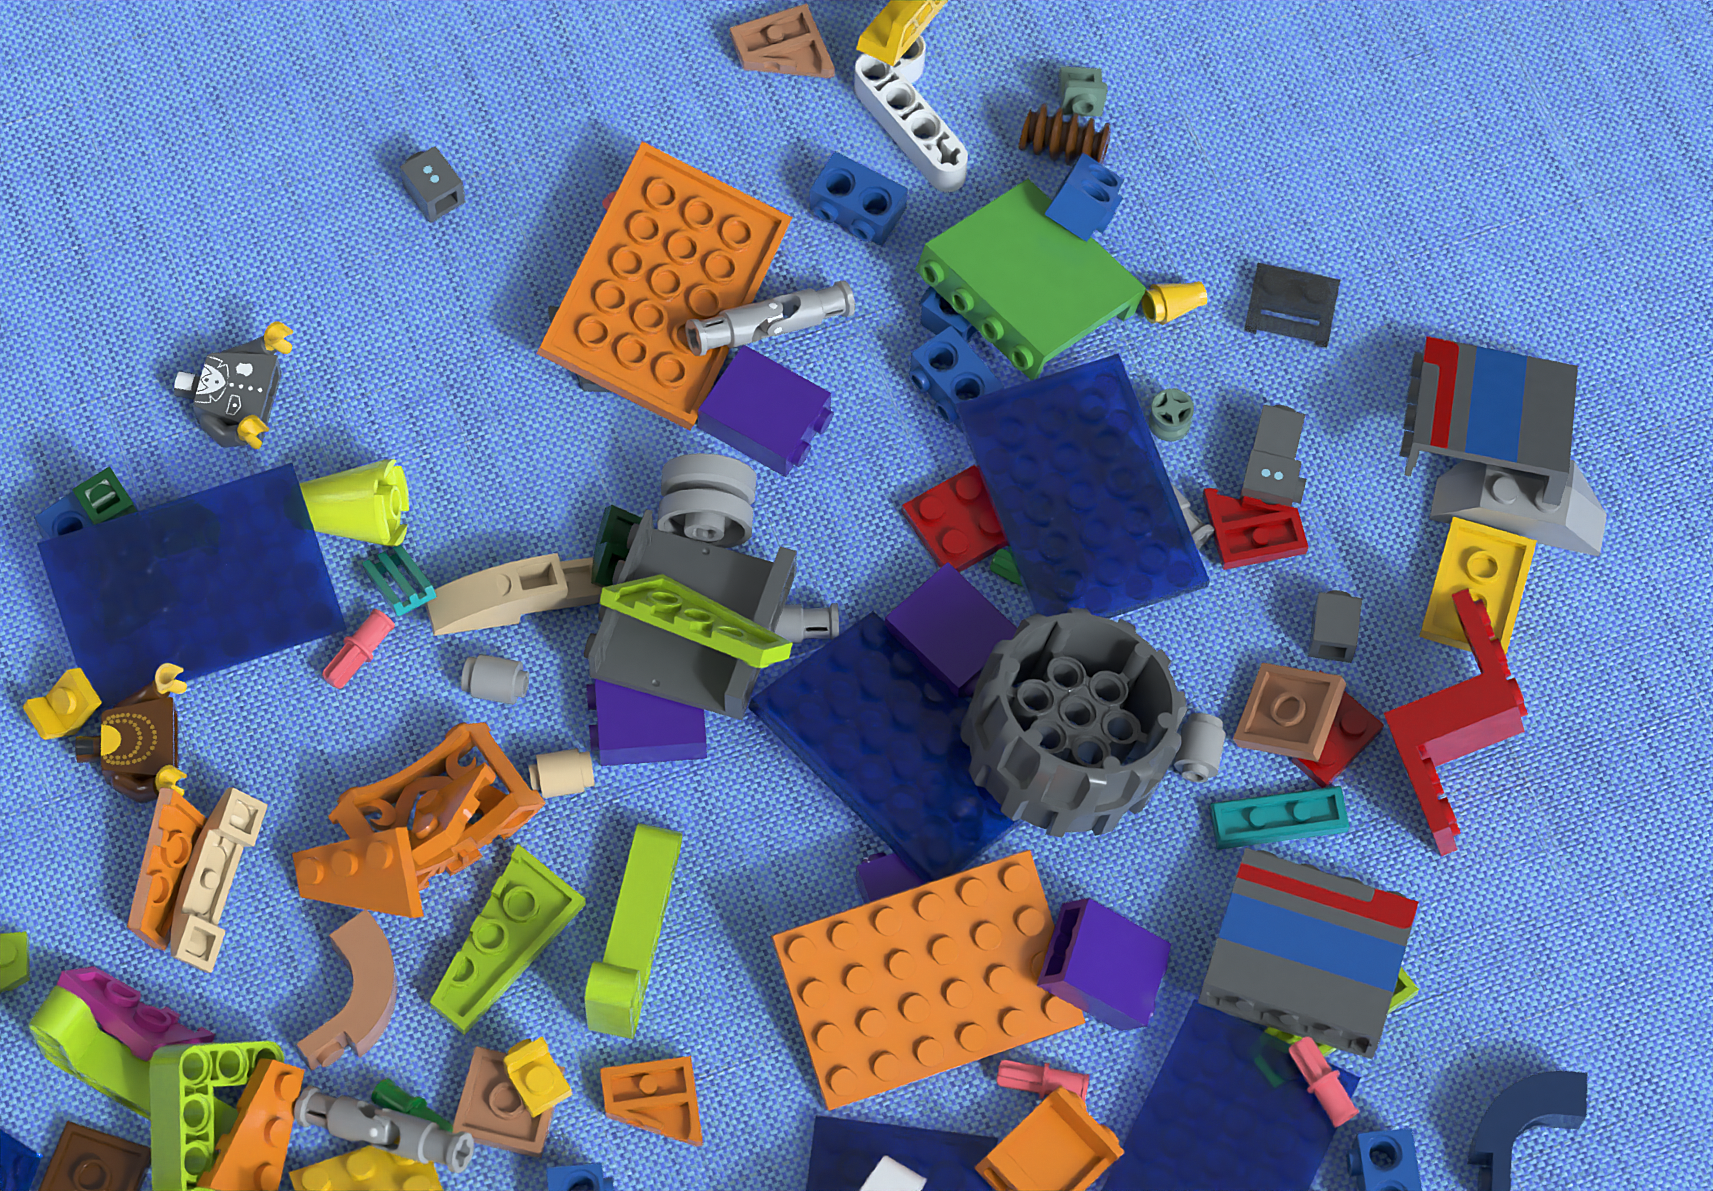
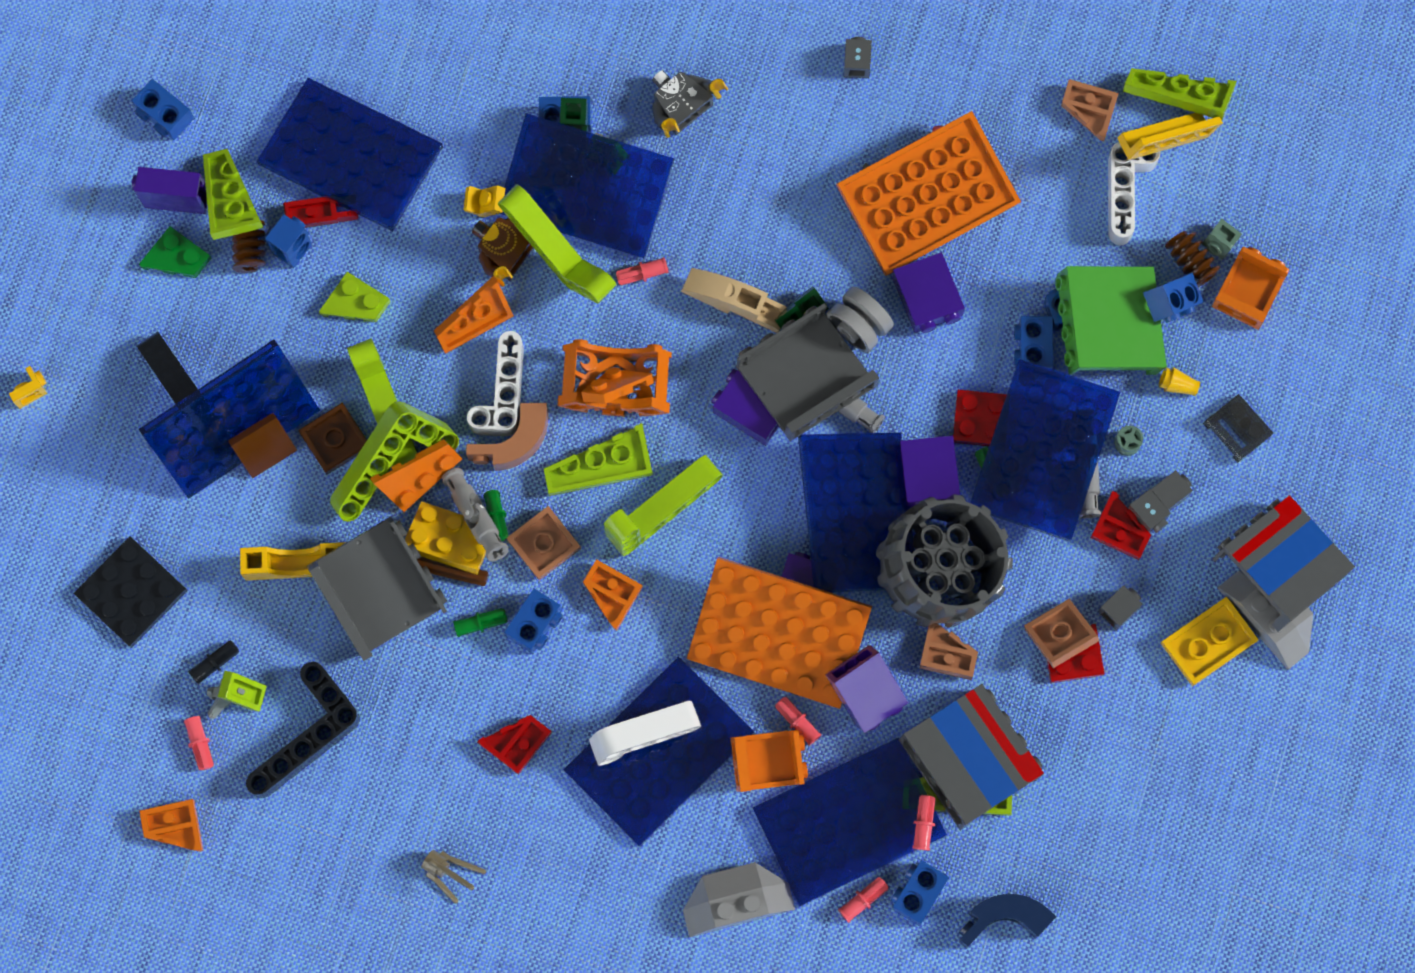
camera: 45 degrees right, 10 degrees up
(124, 1016) = (403, 374): dark pink wing -> none
(209, 878) = (485, 336): tan slope -> none
(218, 694) = (554, 248): none -> lime beam
(282, 929) = (503, 384): none -> white beam
(360, 503) = (696, 200): neon yellow cone -> none
(362, 873) = (556, 385): orange wing -> none
(389, 565) = (688, 238): teal tile -> none
(494, 679) = (694, 333): light grey brick -> none
(535, 1076) = (562, 541): yellow bracket -> none
(562, 773) = (689, 403): tan brick -> none
(692, 615) = (801, 375): lime wing -> none
(765, 318) = (962, 246): light grey piece -> none
(864, 191) = (1067, 214): blue brick -> none
(1164, 125) = (1251, 287): none -> orange panel
(1167, 847) = (947, 654): none -> nougat wing
(1200, 747) = (1003, 618): light grey brick -> none
(1279, 817) = (1015, 680): teal tile -> none
(1457, 720) = (1134, 700): red bracket -> none

